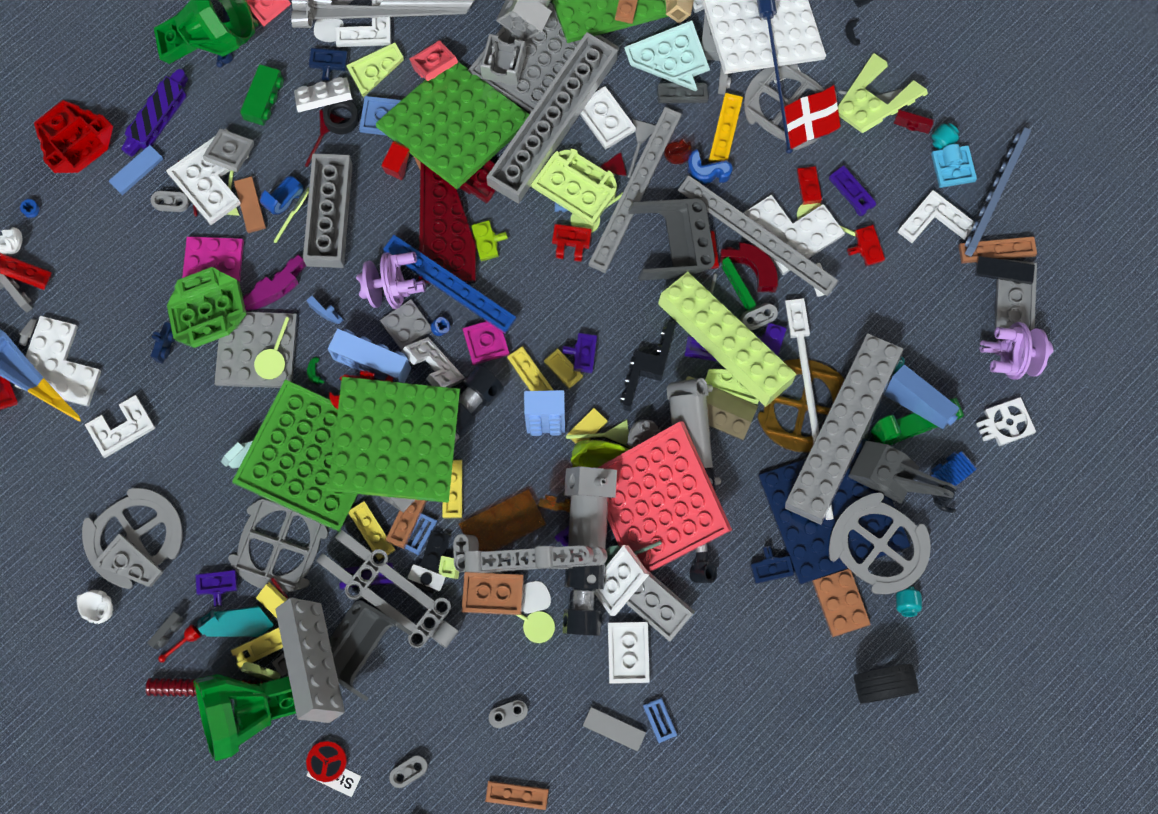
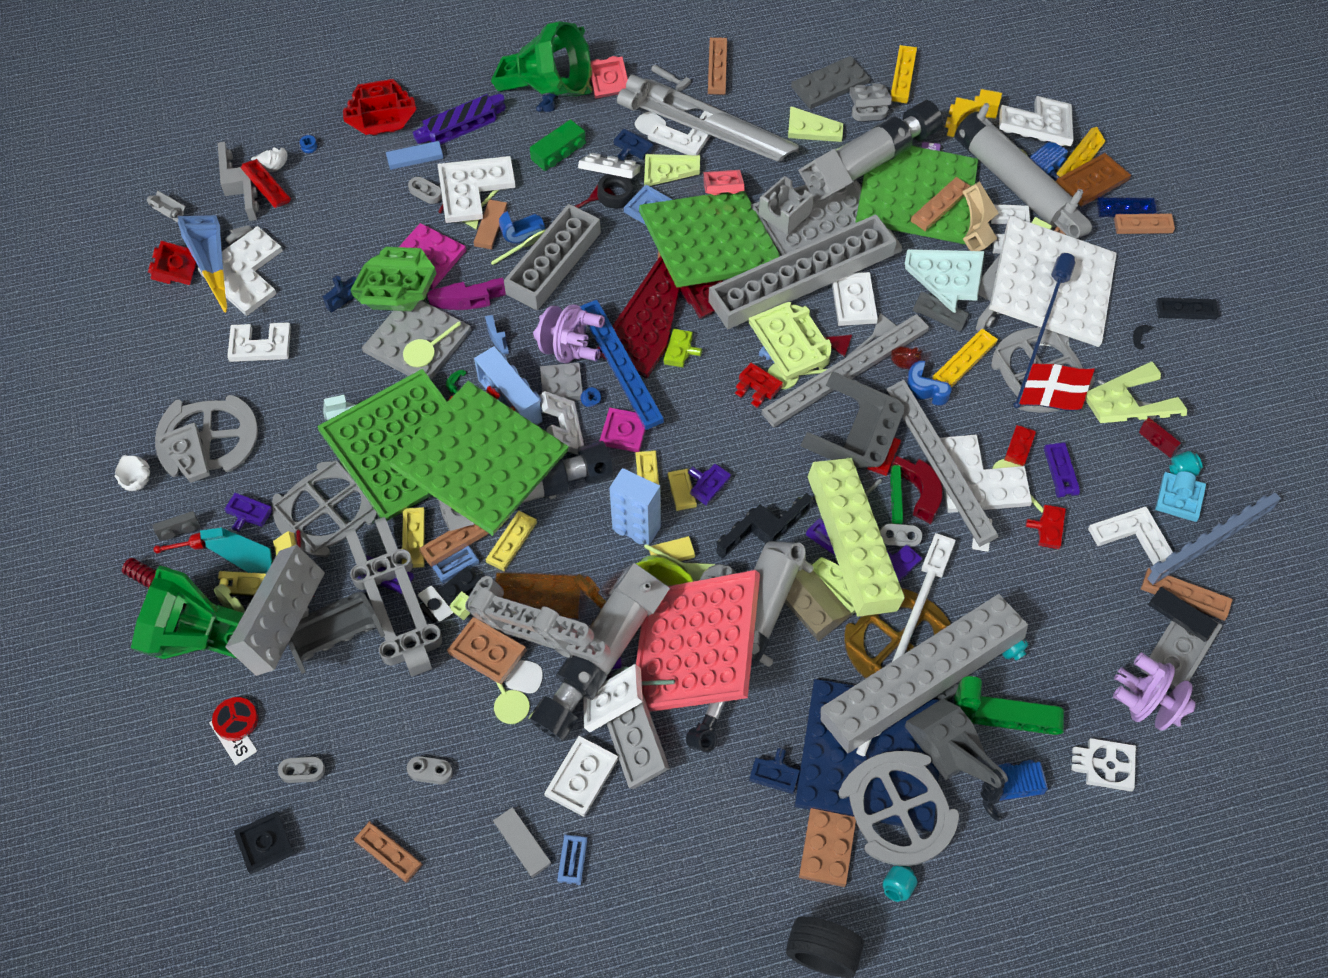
camera: 30 degrees right, 15 degrees down
(228, 150) = (499, 171): light grey plate -> none
(396, 160) = (638, 243): red slope -> none
(921, 398) = (1023, 685): medium blue slope -> none

